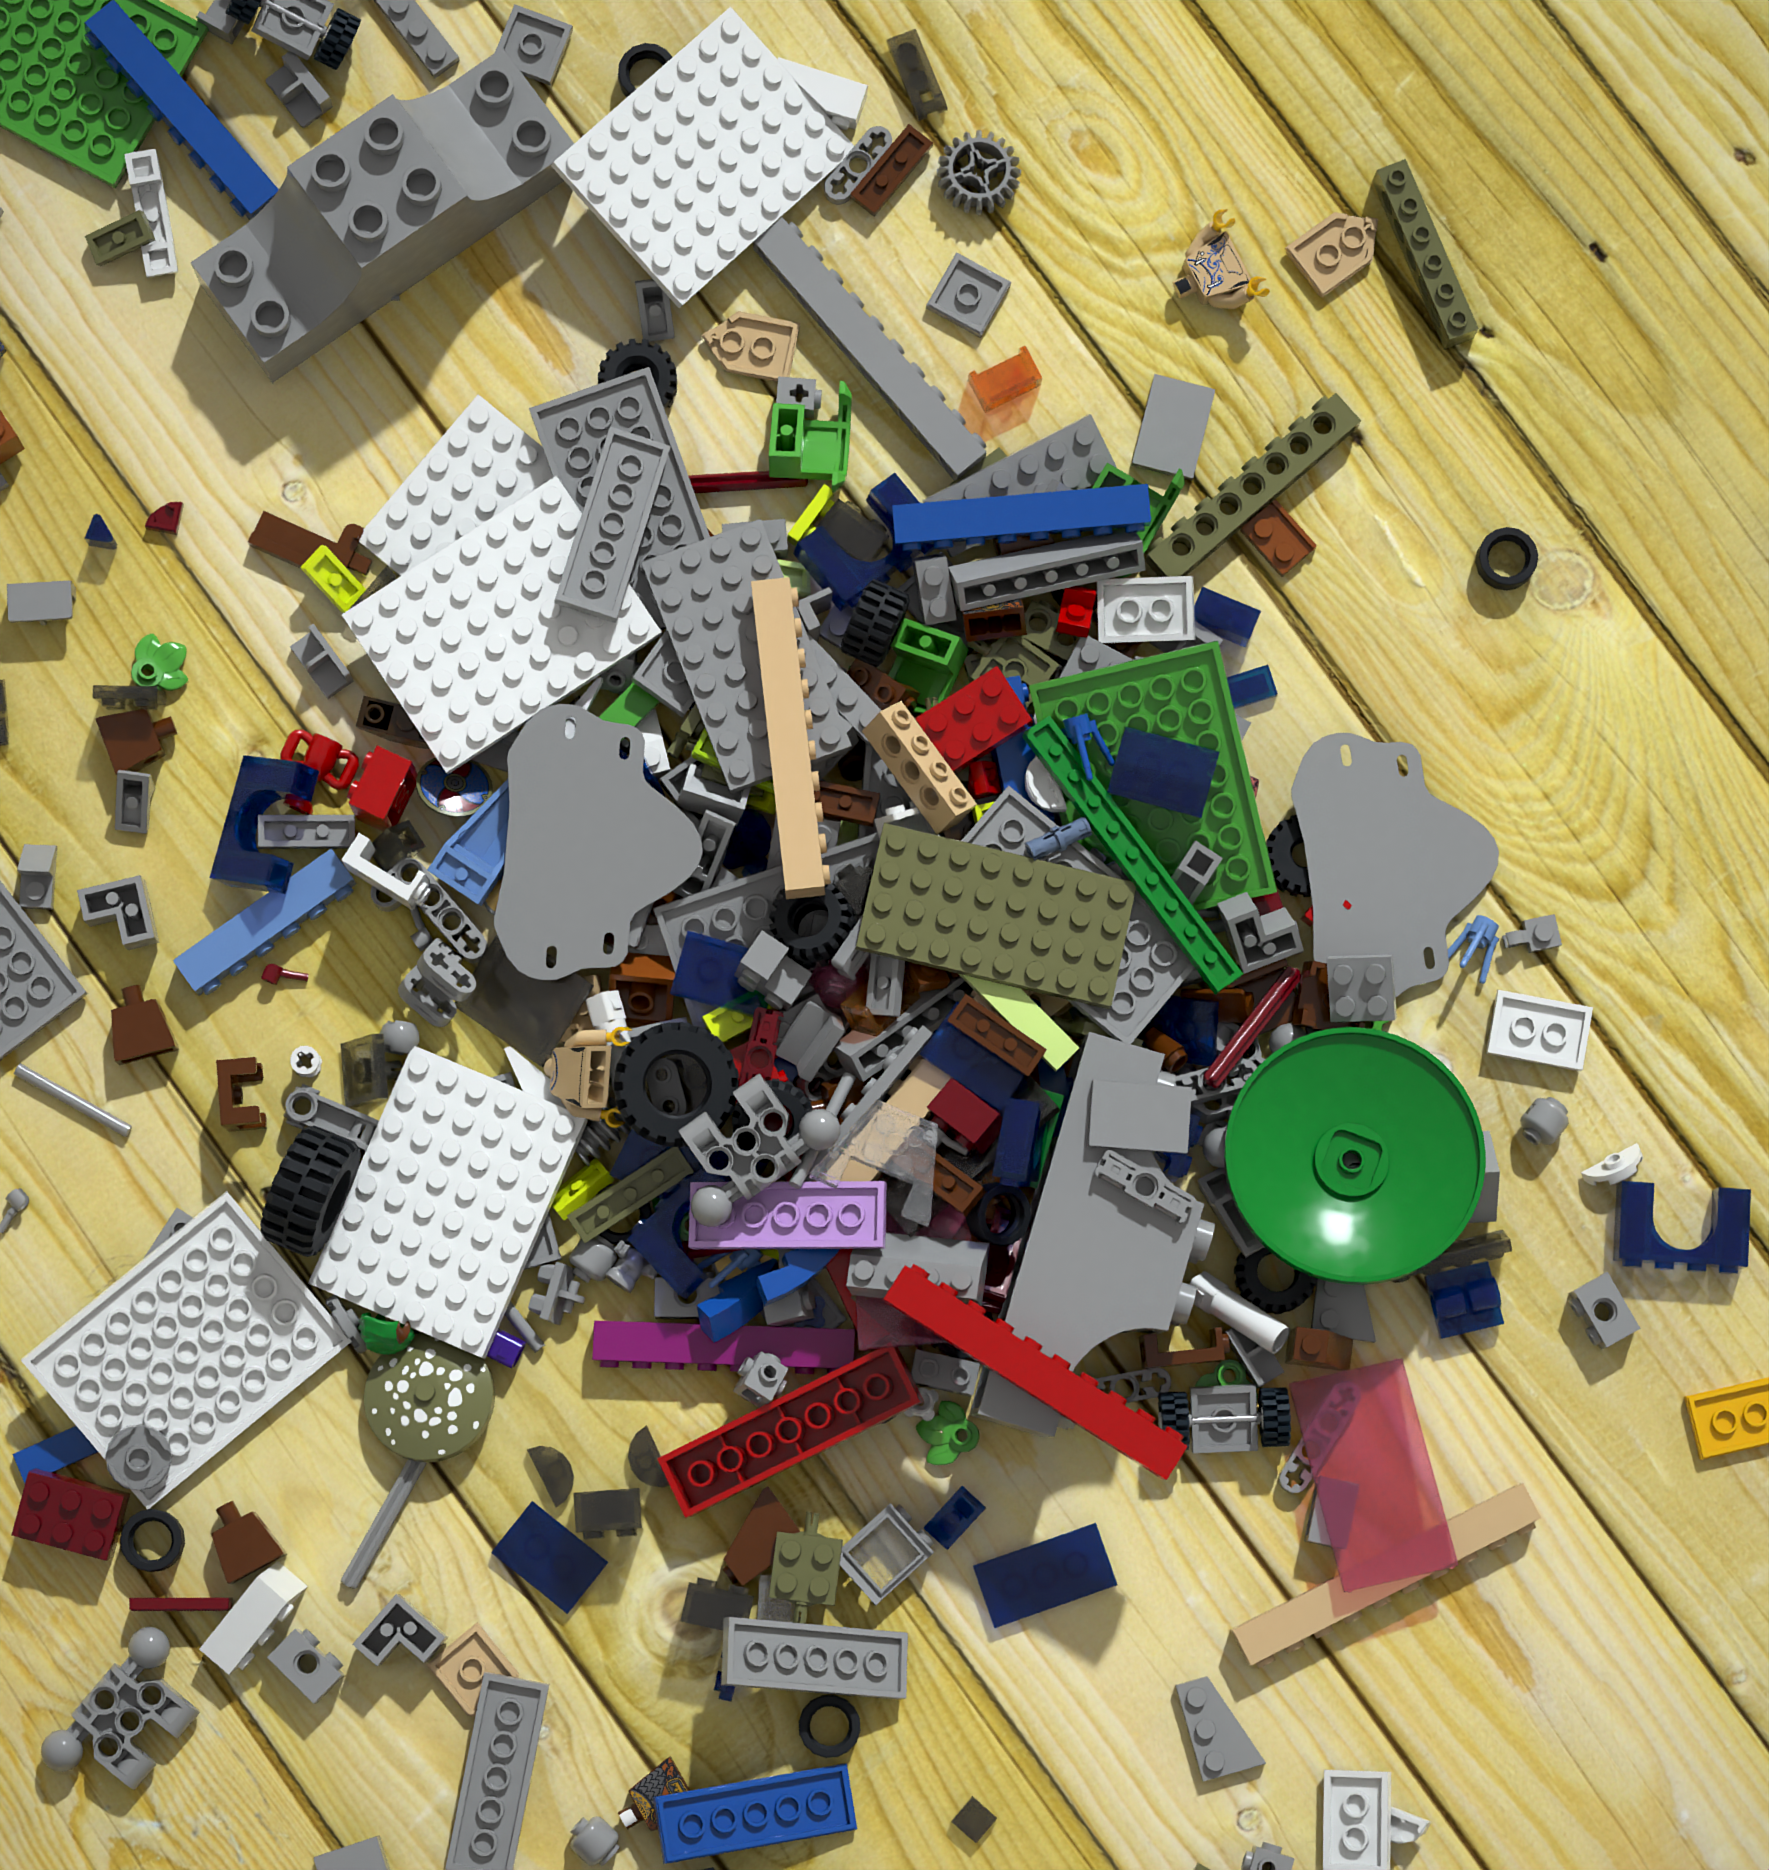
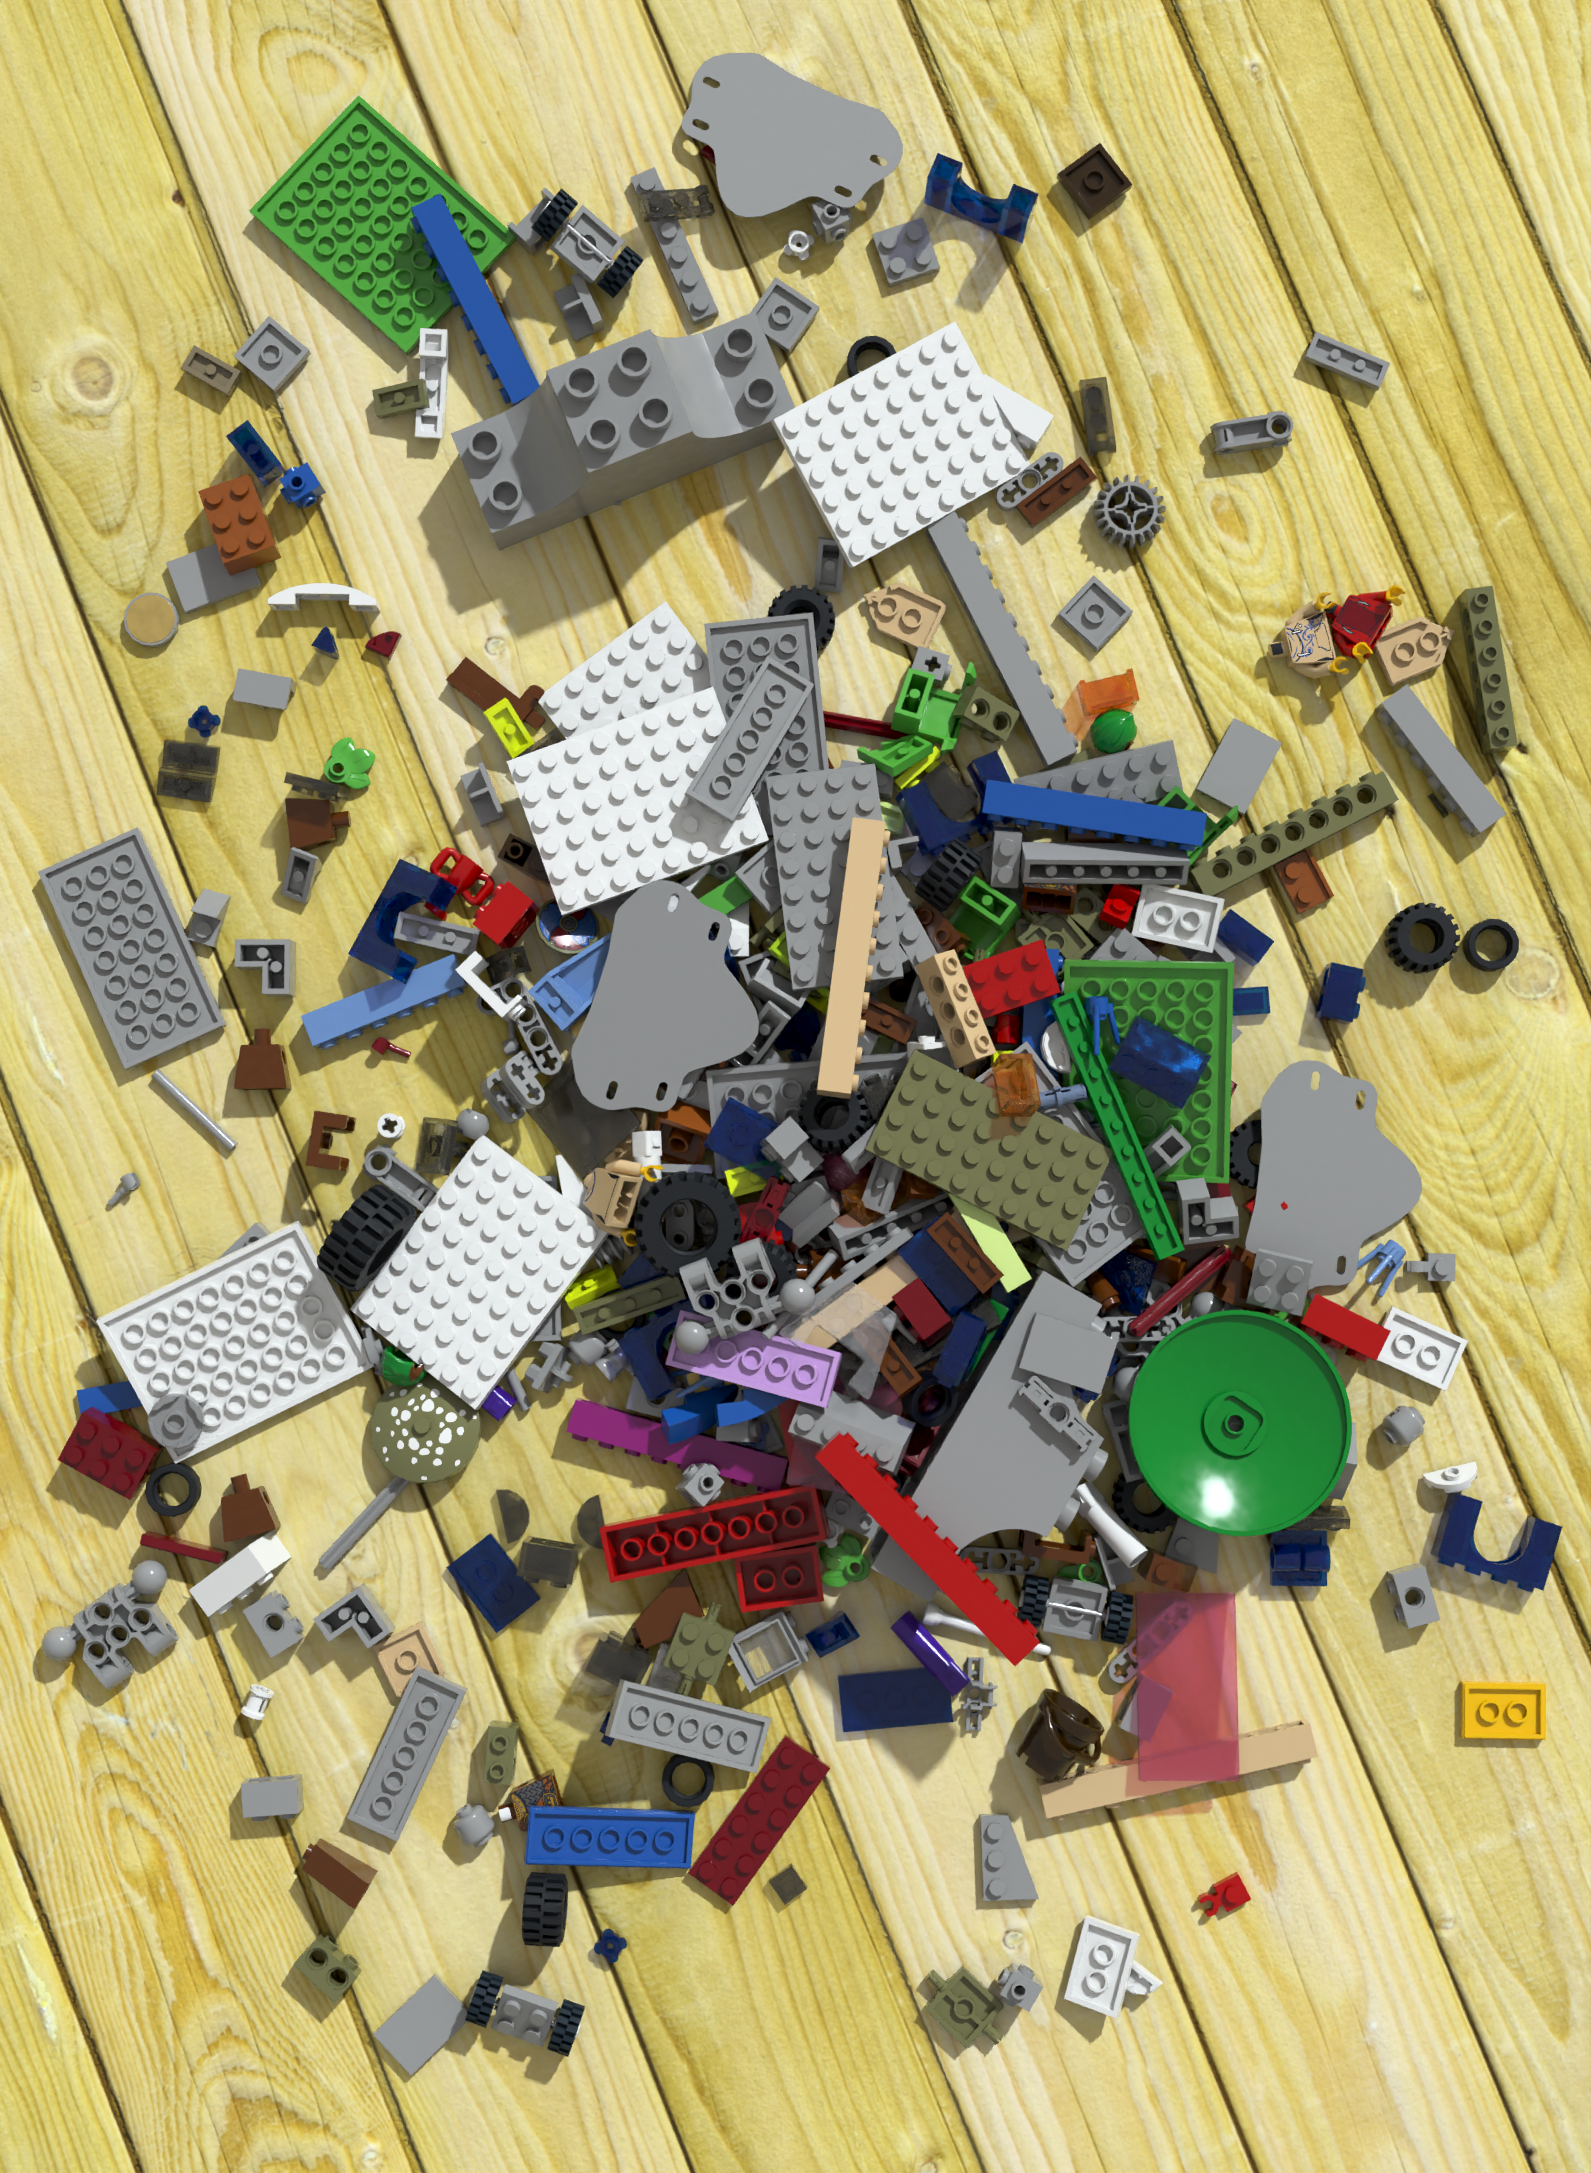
camera: 20 degrees right, 5 degrees up
(29, 362) = (301, 486): none -> blue brick
(45, 492) = (290, 598): none -> white slope
(308, 1761) = (257, 1702): none -> white bush
(606, 1748) = (501, 1752): none -> olive brick
(783, 503) = (897, 754): none -> bright green wing
(873, 429) = (987, 709): none -> olive brick
(877, 1466) = (779, 1578): none -> red brick
(922, 1754) = (759, 1819): none -> dark red plate
(1008, 834) = (1016, 1085): none -> clear orange panel
(1022, 420) = (1113, 731): none -> green hair
(1067, 1468) = (934, 1615): none -> white piece
(1072, 1511) = (930, 1653): none -> dark purple piece
(1095, 53) = (1252, 433): none -> light grey piece
(1138, 1538) = (978, 1684): none -> light grey piece
(1242, 1566) = (1059, 1736): none -> dark brown piece
(1271, 232) = (1362, 621): none -> torso
(1351, 653) = (1340, 993): none -> clear blue brick
(1397, 367) = (1439, 761): none -> light grey brick
(1410, 418) = (1442, 810): none -> clear smoke leg
(1438, 546) = (1443, 931): none -> black tyre
(1445, 1025) = (1341, 1328): none -> red brick
(1482, 1704) = (1229, 1893): none -> red plate

